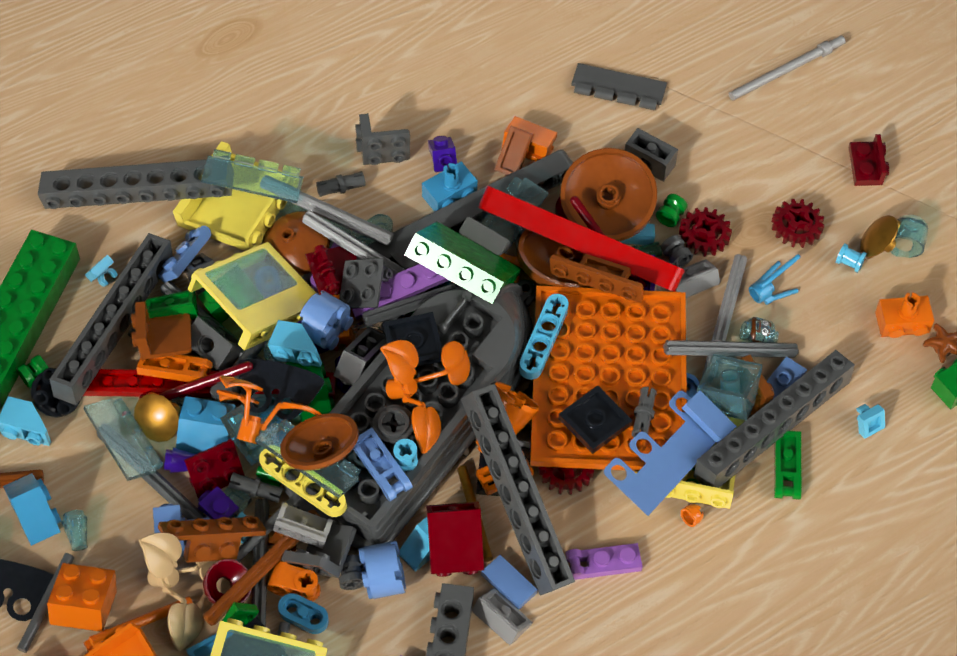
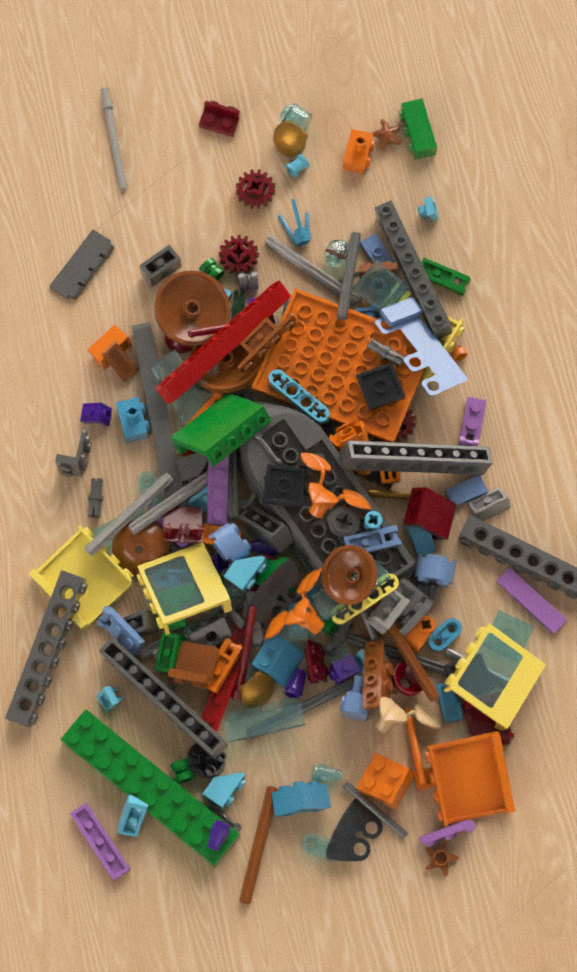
camera: 70 degrees left, 15 degrees up
(242, 612) = (437, 677): green tile -> none
(258, 180) = (90, 554): clear light blue windscreen -> none
(363, 282) = (209, 507): dark grey hinge -> none
(484, 236) = (192, 408): light grey slope -> none
(698, 278) = (270, 272): light grey slope -> none

